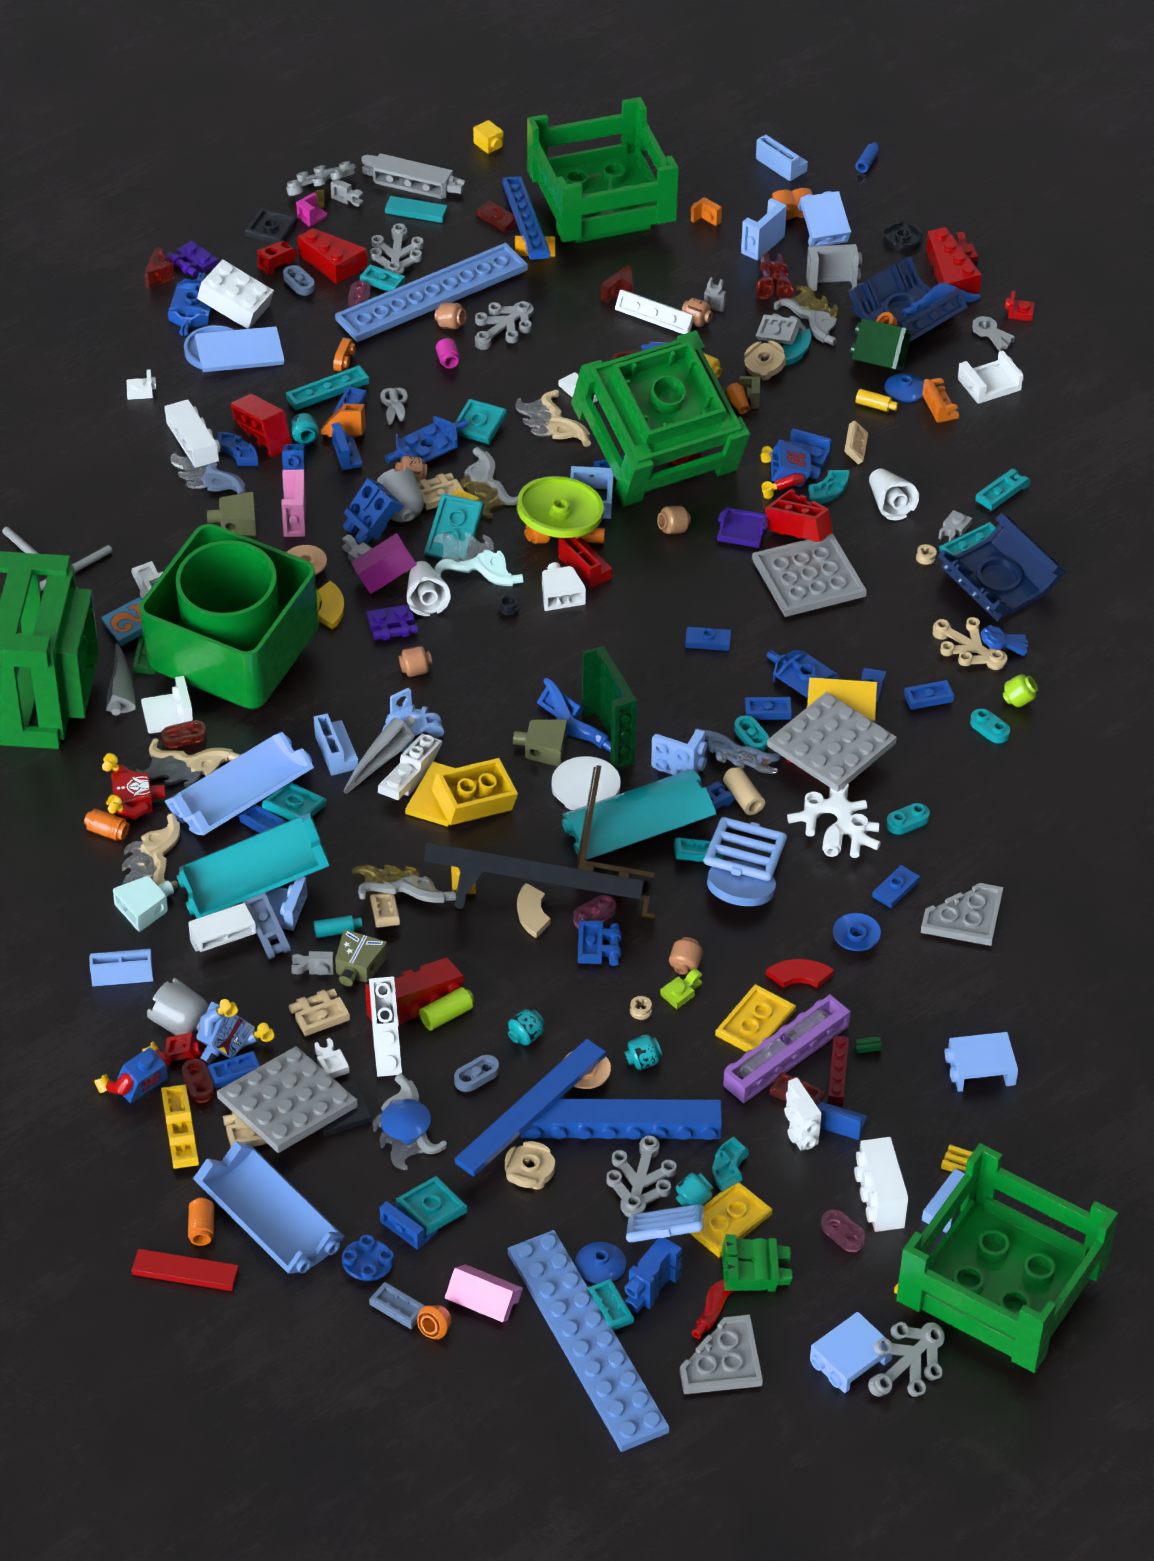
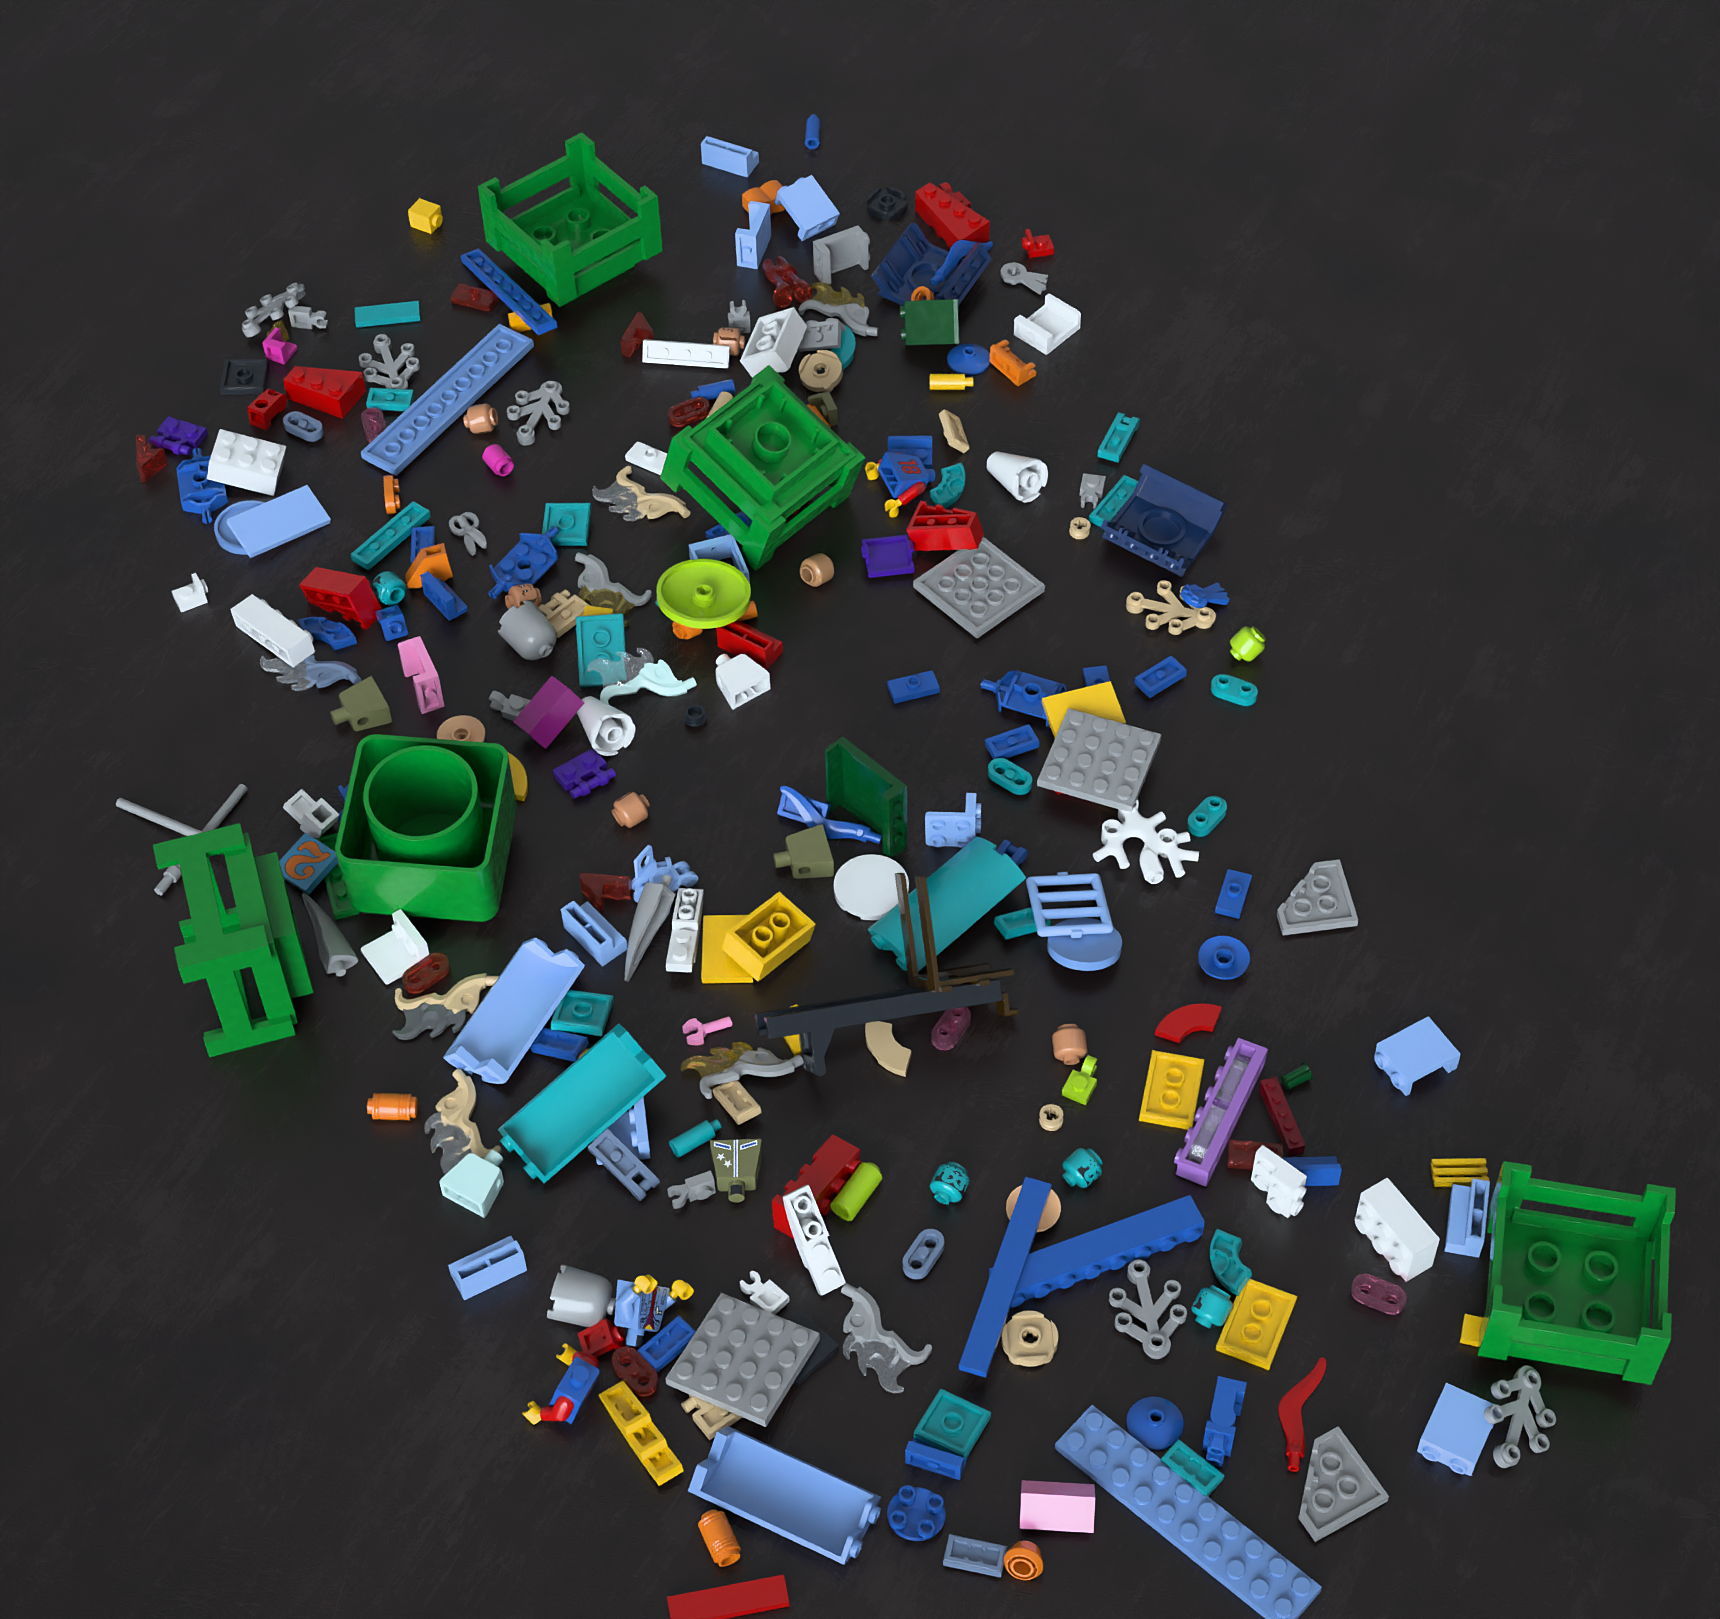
camera: 20 degrees left, 5 degrees up
(131, 790) = (401, 1058): torso -> none
(221, 927) = (577, 1185): white piece -> none
(321, 1016) = (729, 1247): tan plate -> none
(360, 713) = (599, 887): none -> clear red slope
(370, 511) = (508, 659): blue hips -> none
(385, 848) = (703, 1029): none -> bright pink bar
(405, 1120) = (879, 1336): blue dish -> none
(411, 176) = (366, 280): light grey hinge -> none
(590, 943) = (966, 1064): blue plate -> none
(665, 1223) = (1225, 1373): light blue bar -> none
(707, 210) = (684, 231): orange bracket -> none
(733, 324) = (774, 342): none -> white brick
(739, 755) = (1013, 803): piece -> none
(743, 791) = (1034, 841): tan brick -> none
(754, 1264) = (1314, 1367): green hips -> none

